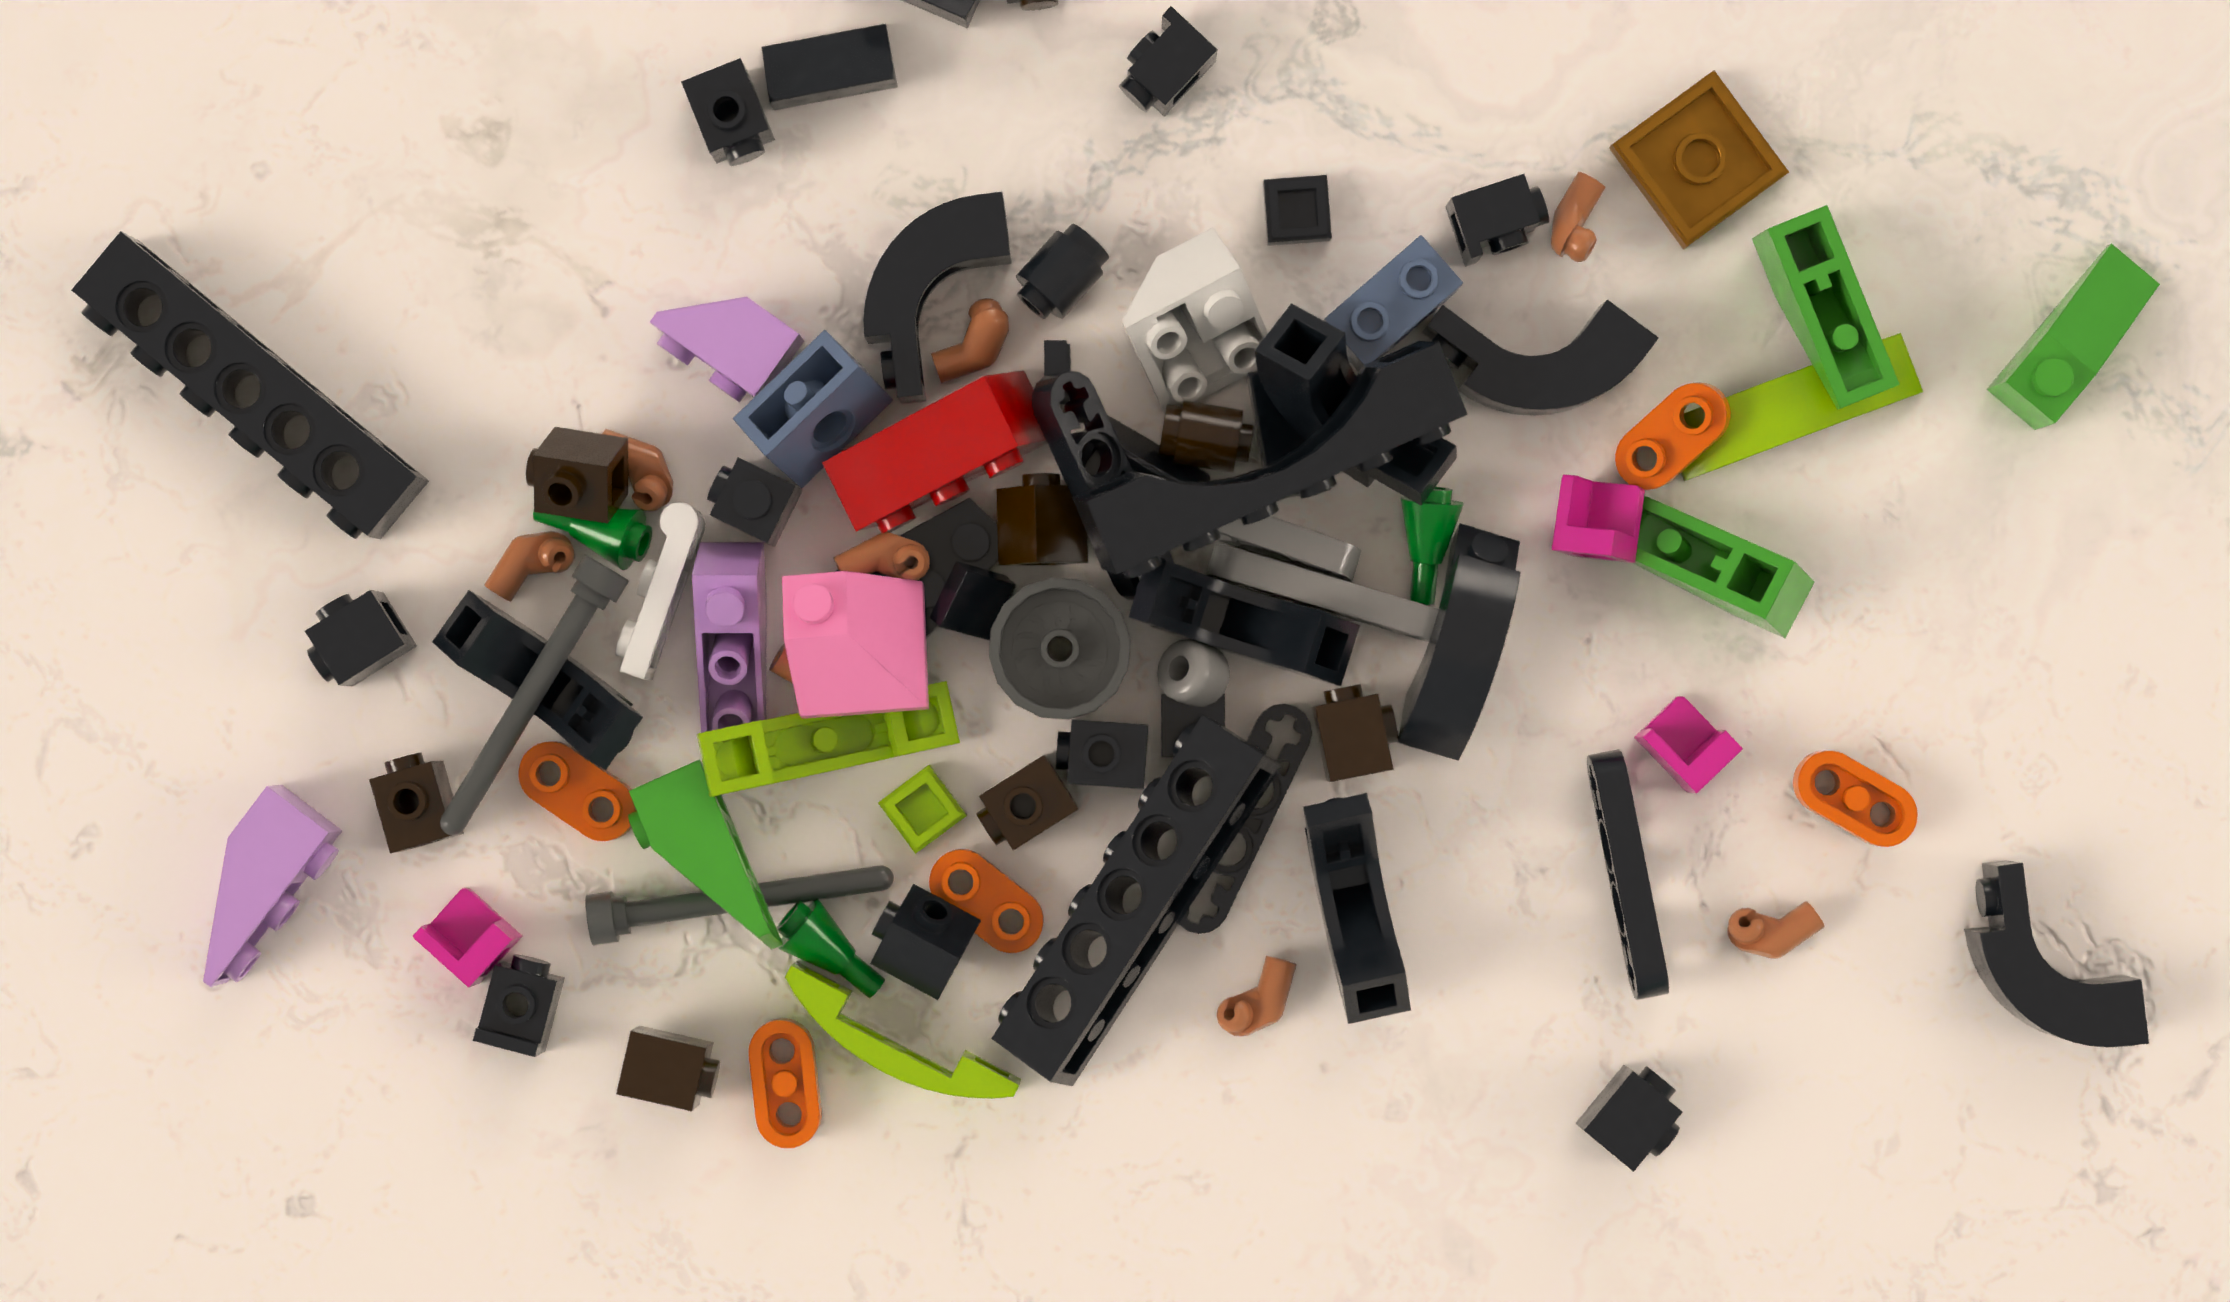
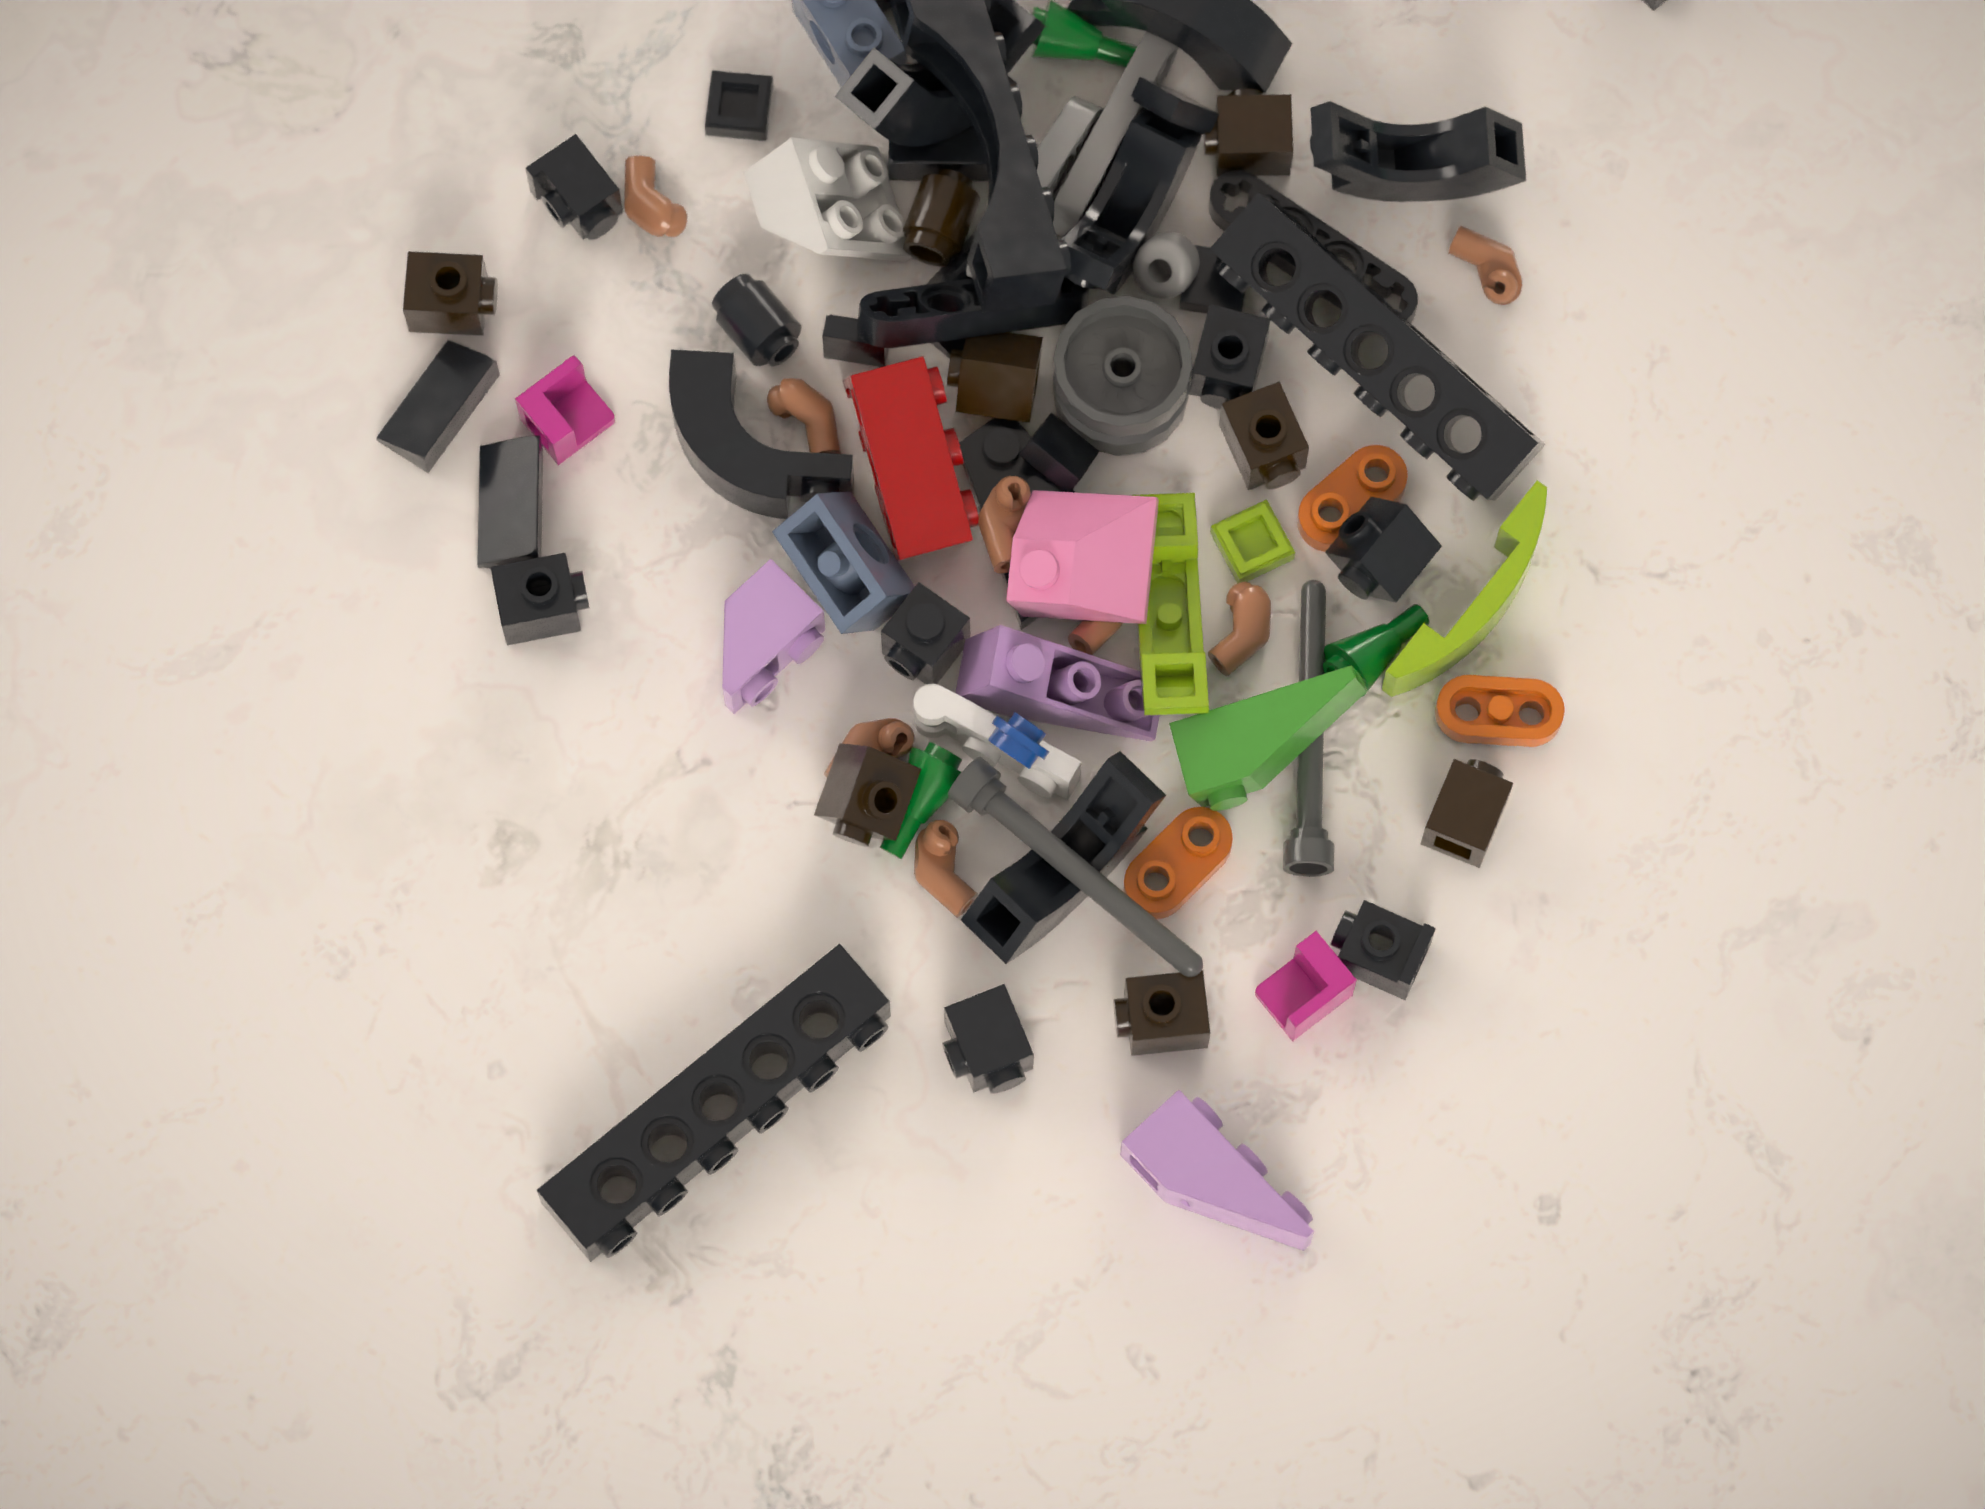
camera: 80 degrees left, 15 degrees down
(641, 614) = (1019, 739): none -> blue plate
(830, 821) = (1250, 627): none -> nougat arm
(931, 100) = (564, 410): none -> dark pink panel
(1169, 137) = (648, 206): none -> nougat arm
(1357, 652) = (1174, 106): none -> black tile

